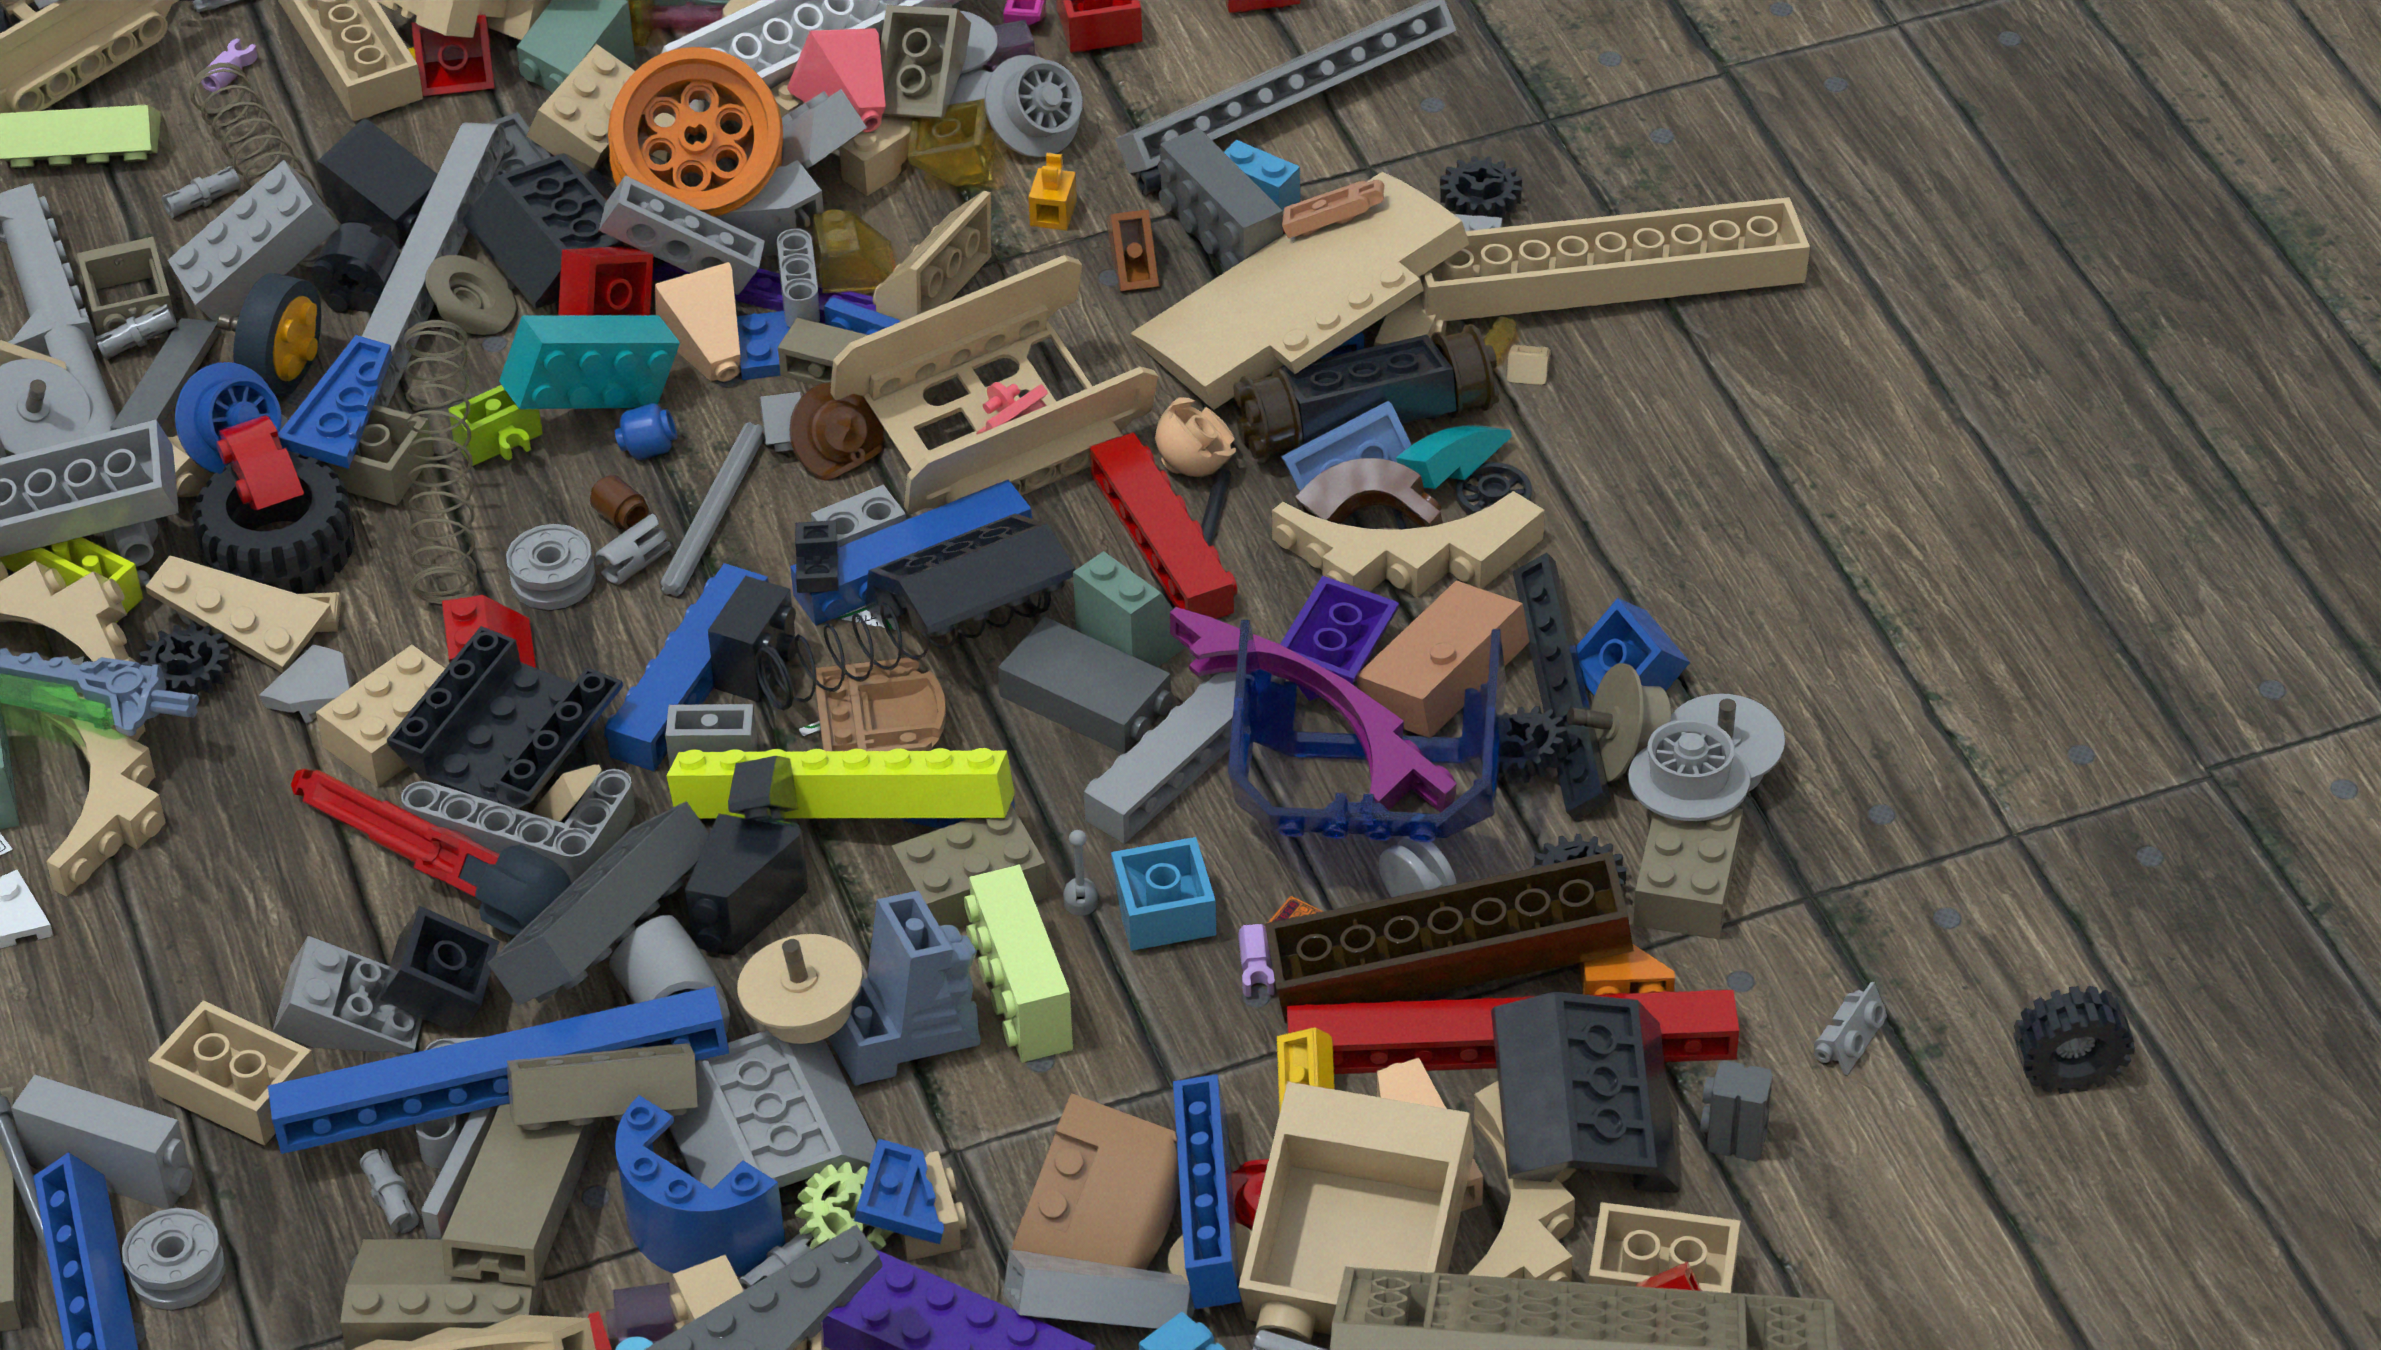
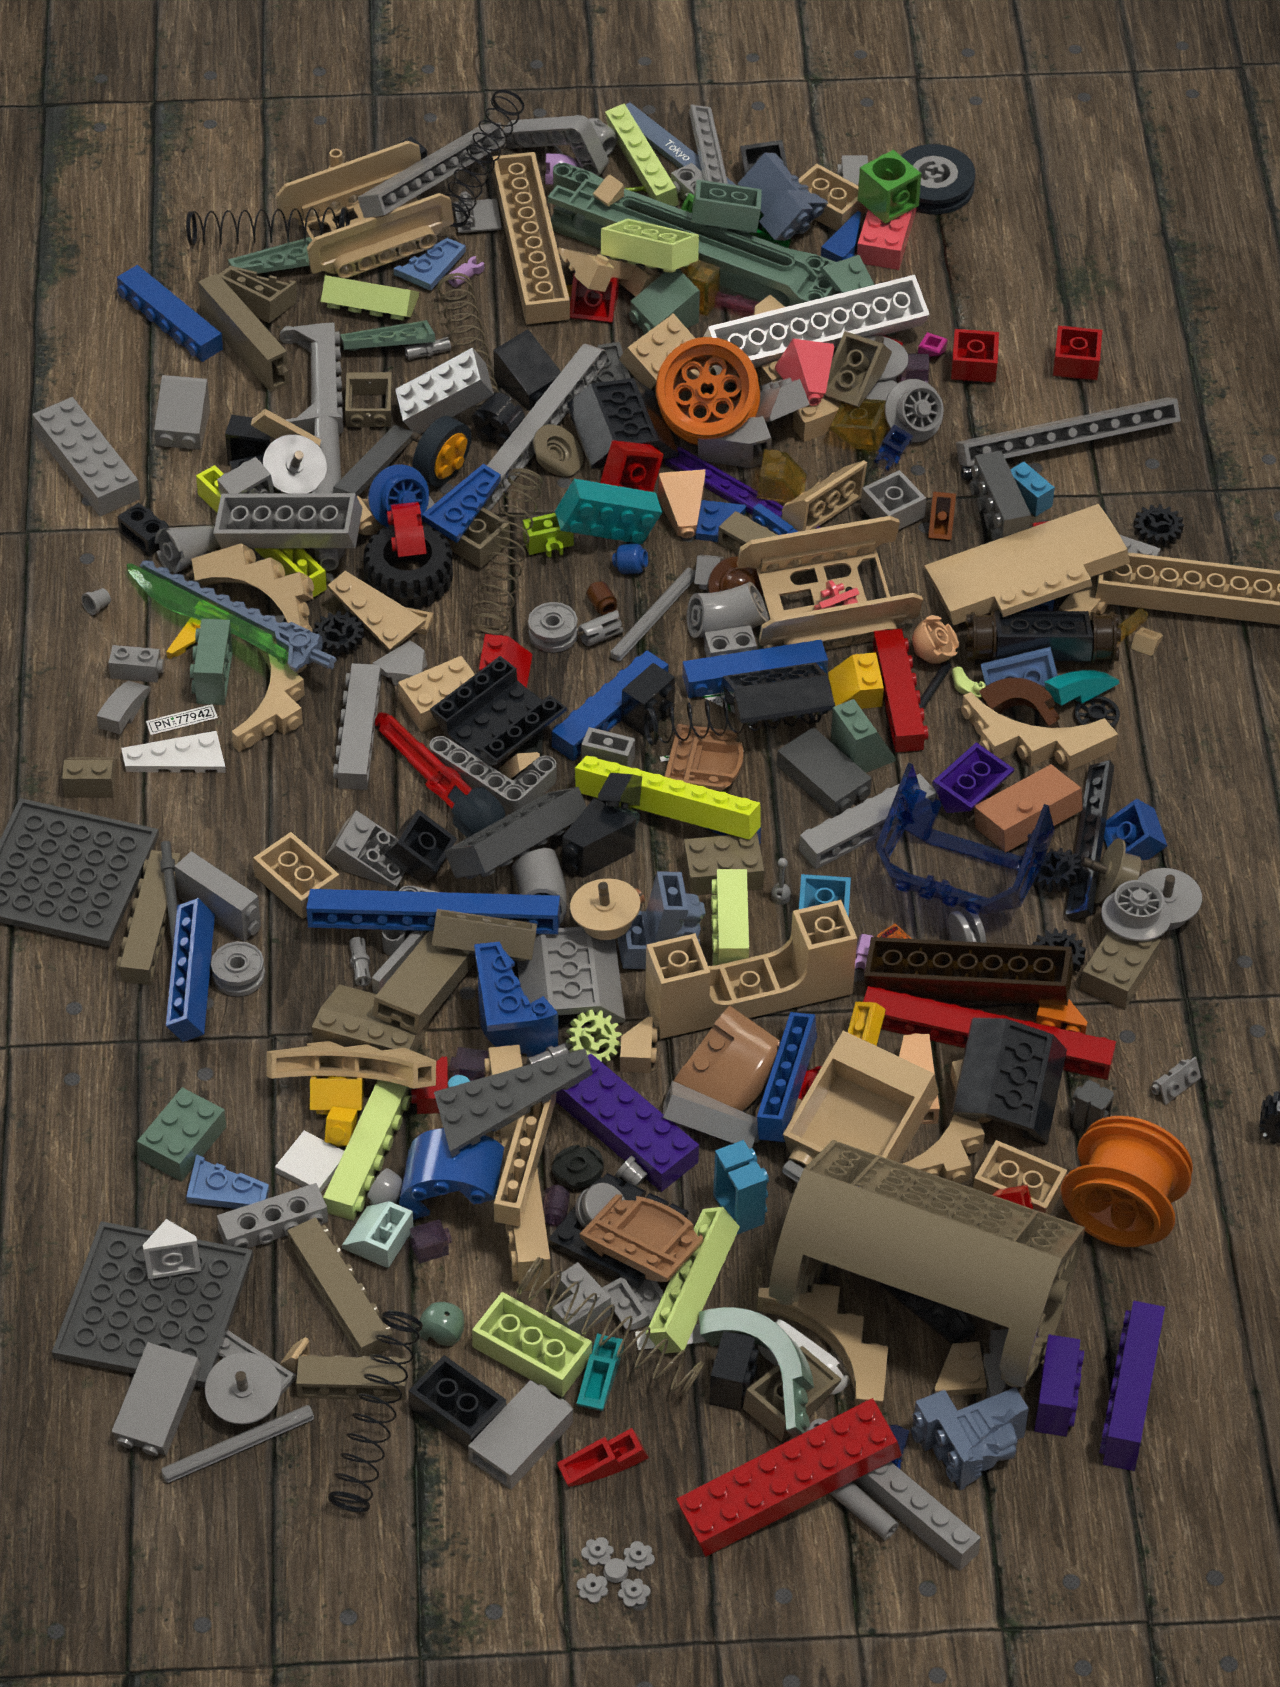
camera: 15 degrees right, 5 degrees up
(132, 185) = (389, 336): none -> sand green wing
(136, 331) = (367, 427): light grey pin -> none
(170, 68) = (433, 265): none -> medium blue wing
(267, 804) = (358, 727): none -> light grey brick
(667, 1169) = (501, 991): none -> blue wing
(679, 232) = (682, 445): light grey brick -> none
(798, 276) = (744, 485): light grey beam -> none
(816, 556) = (698, 659): black slope -> none
(832, 471) = (726, 610): none -> light grey brick
(899, 1194) = (622, 1035): blue wing -> none
(994, 1093) = (808, 969): none -> tan arch
(1019, 165) = (894, 446): none -> clear blue brick
(1044, 234) = (894, 497): none -> light grey brick
(1052, 195) = (910, 464): light orange brick -> none
(1094, 521) = (858, 680): none -> yellow slope
(1262, 496) = (964, 684): none -> yellowish green arm
(1331, 207) = (1058, 520): nougat hinge -> none
(1392, 762) = (978, 860): magenta slope -> none
(1855, 1207) = (1127, 1181): none -> orange wheel

